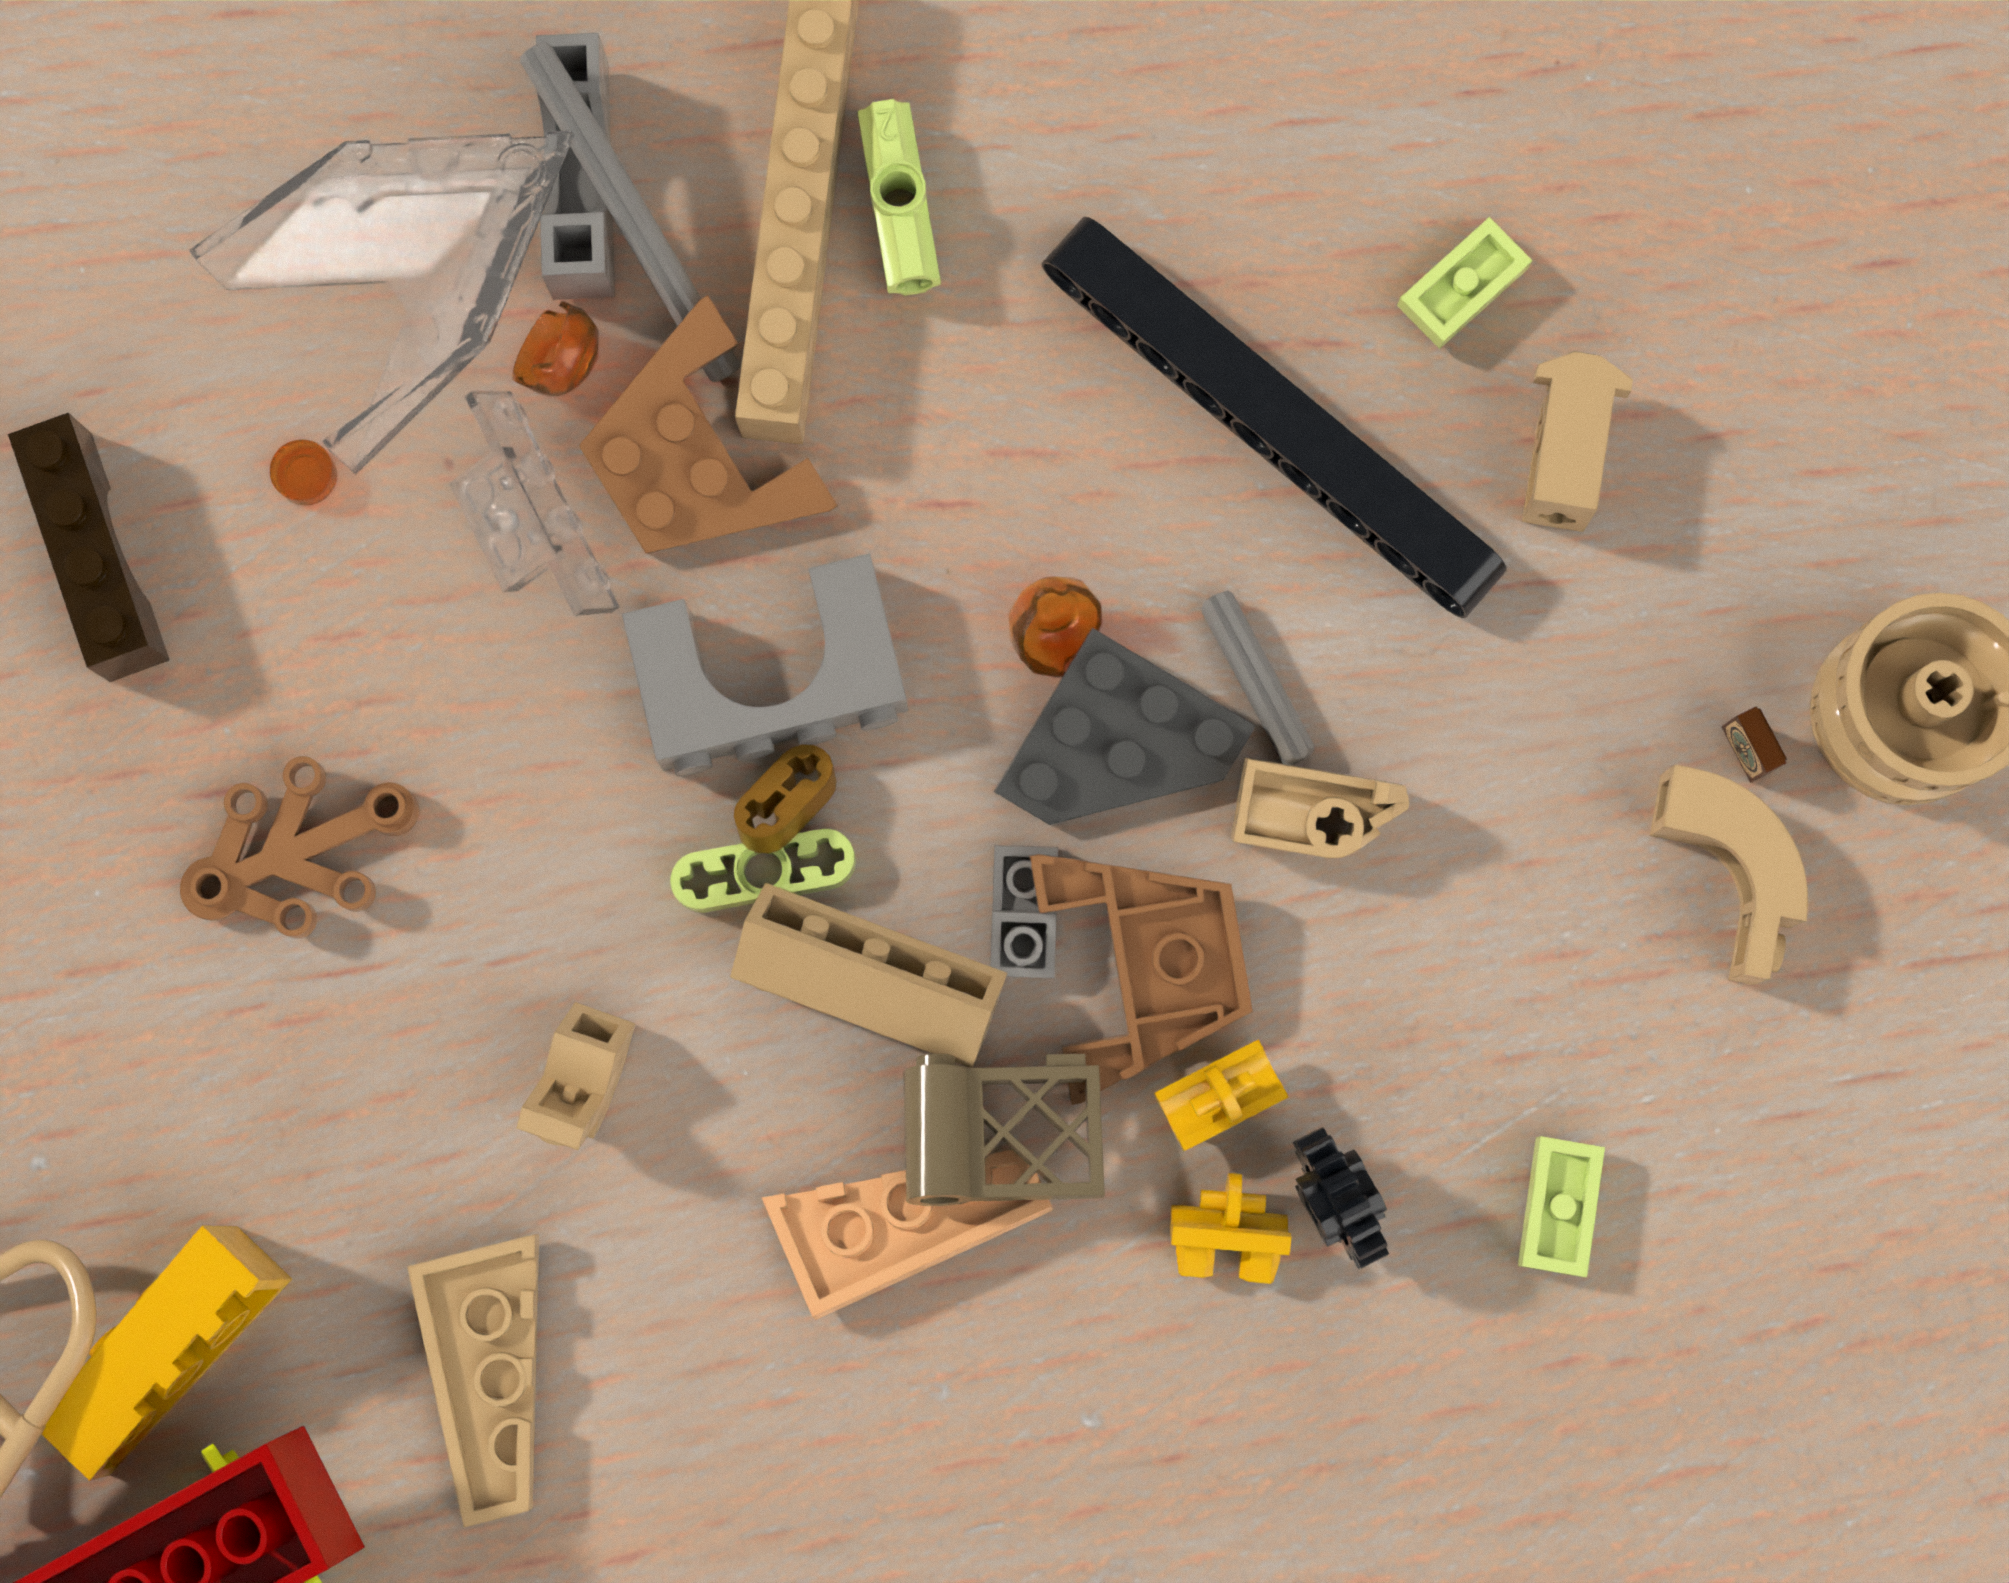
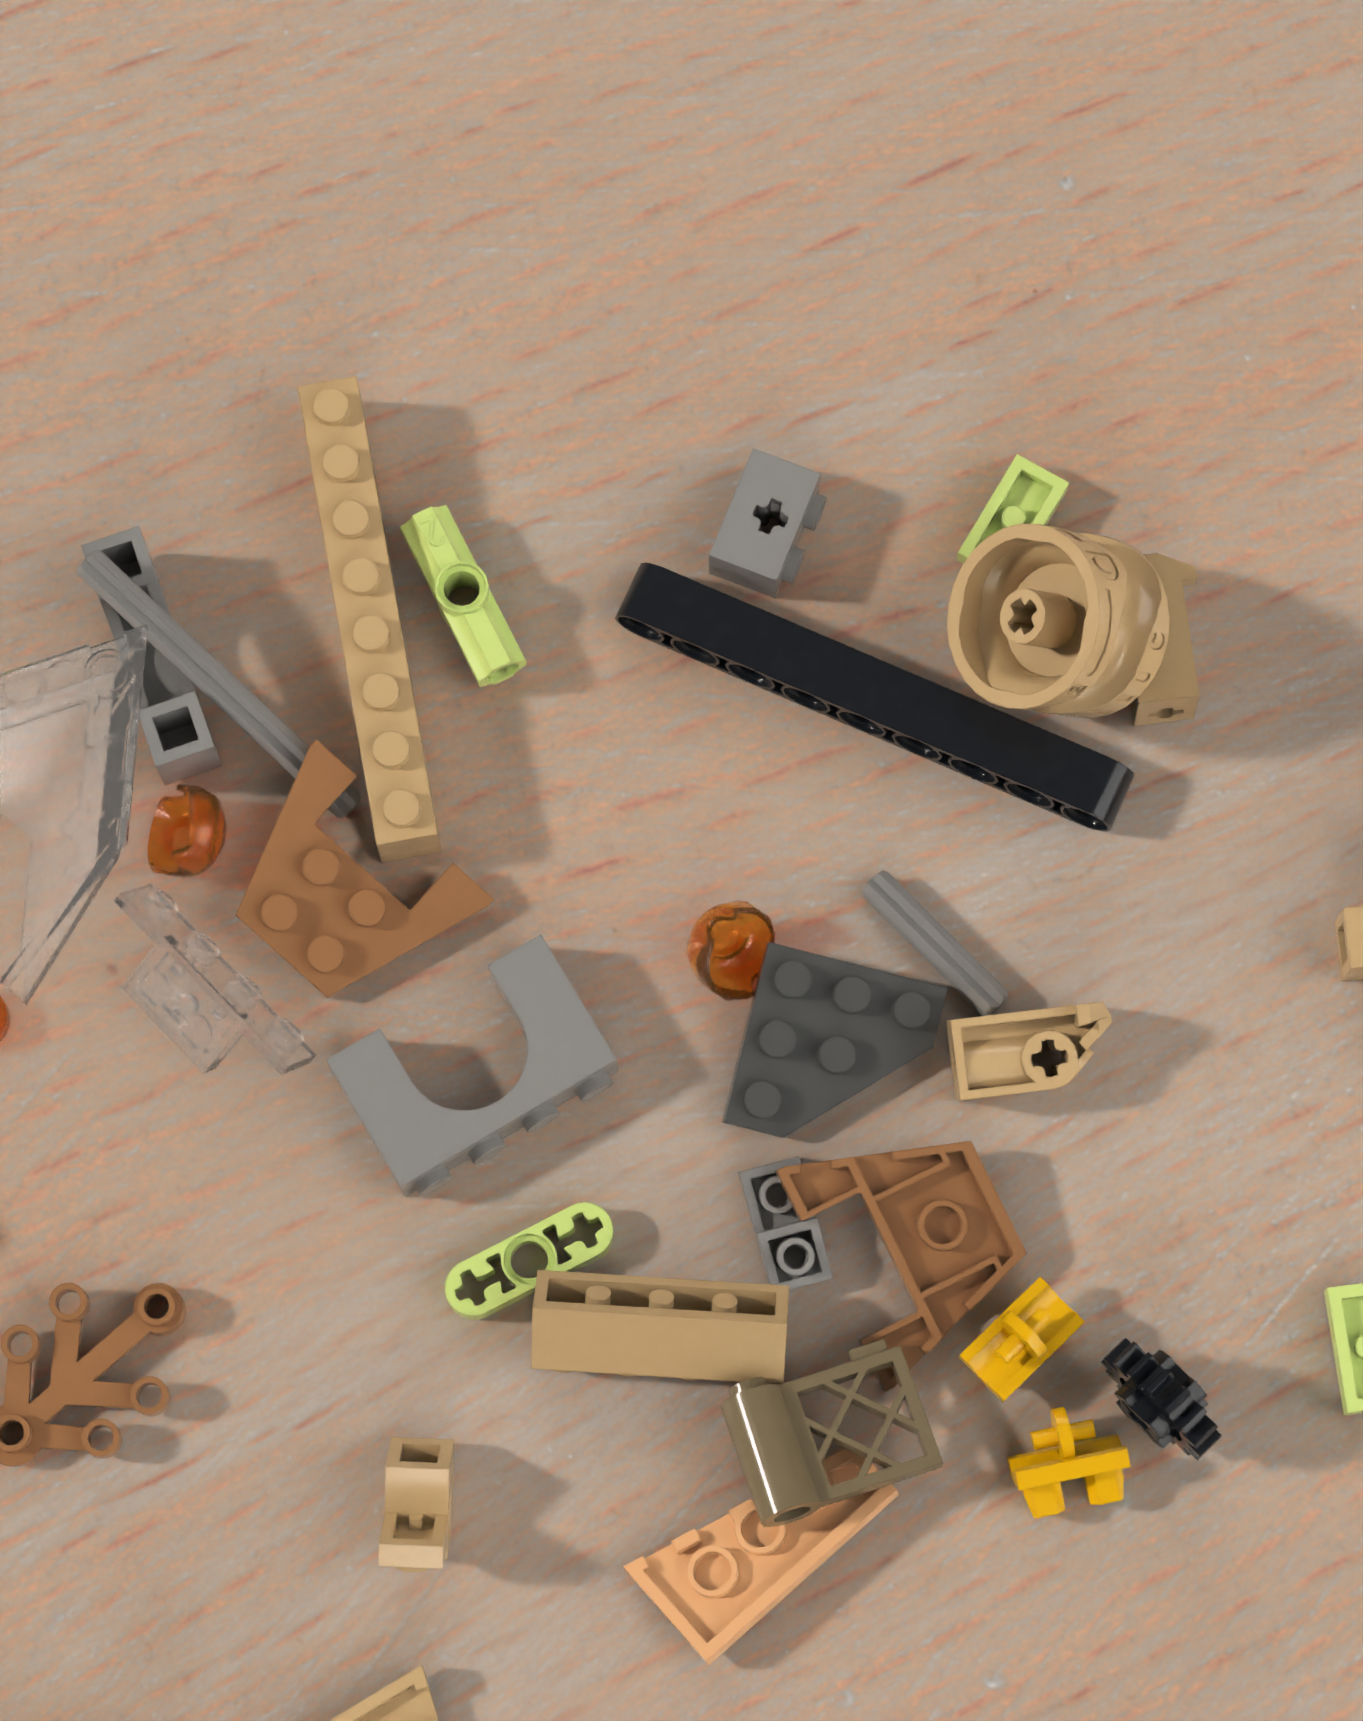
camera: 15 degrees left, 5 degrees down
(790, 802) = (538, 1189): pearl gold beam -> none
(1228, 181) = (767, 491): none -> light grey brick
(1478, 392) = (1057, 621): none -> tan piece

